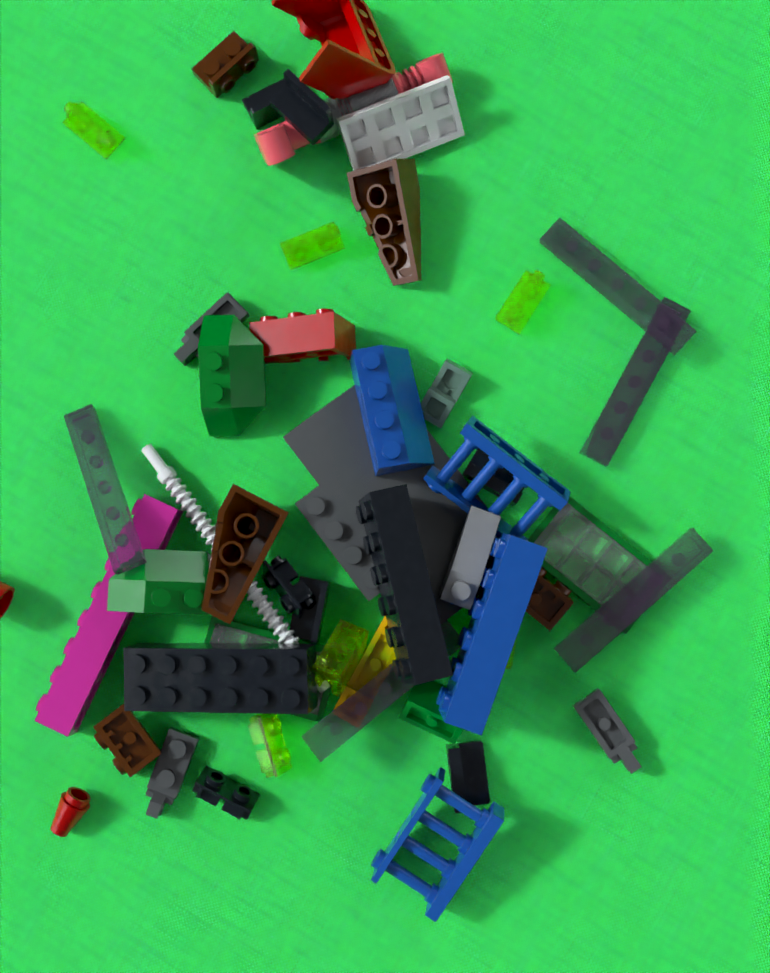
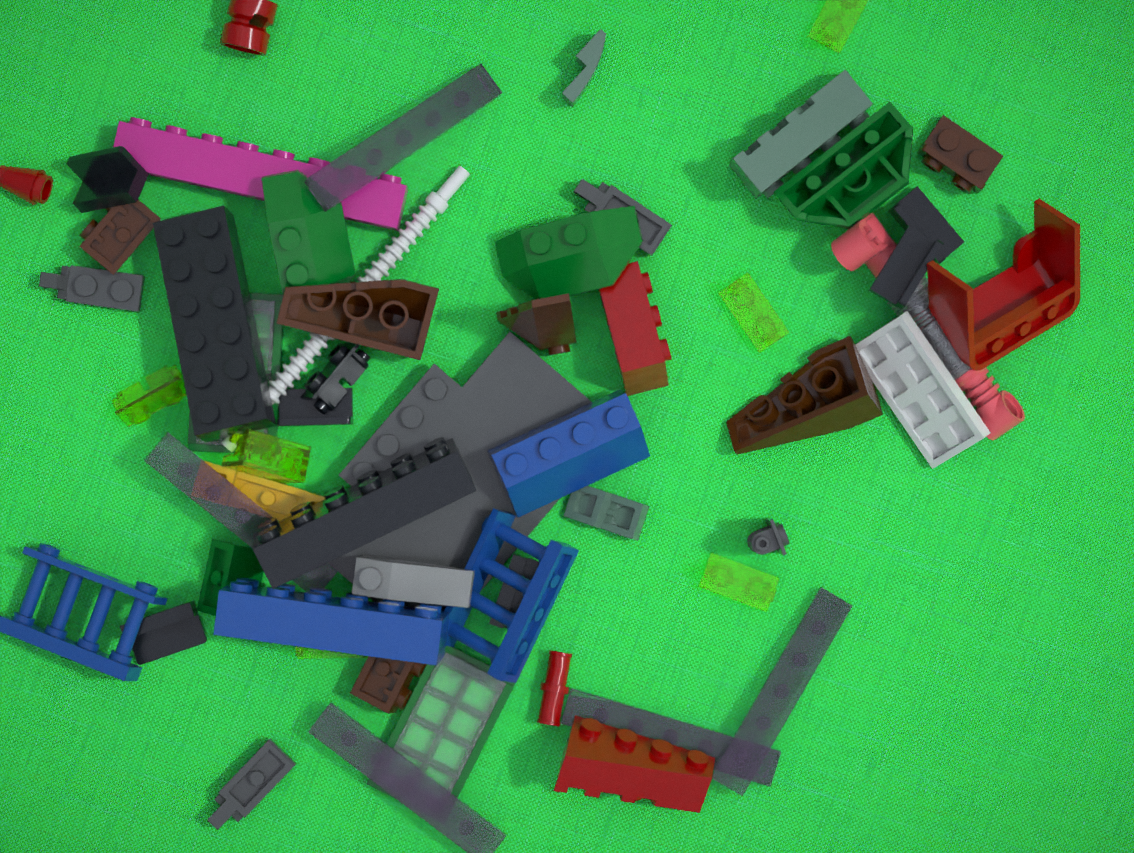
camera: 70 degrees right, 5 degrees up
(78, 739) = (108, 177): none -> black panel
(82, 331) = (589, 59): none -> sand green slope
(179, 177) = (801, 134): none -> sand green wedge
(215, 785) = (81, 374): black hinge -> none
(218, 137) = (853, 173): none -> green wedge
(279, 403) = (543, 323): none -> reddish brown wedge
(493, 265) = (768, 538): none -> dark grey hinge
(578, 464) = (554, 688): none -> red pin
(656, 413) = (633, 767): none -> red wedge

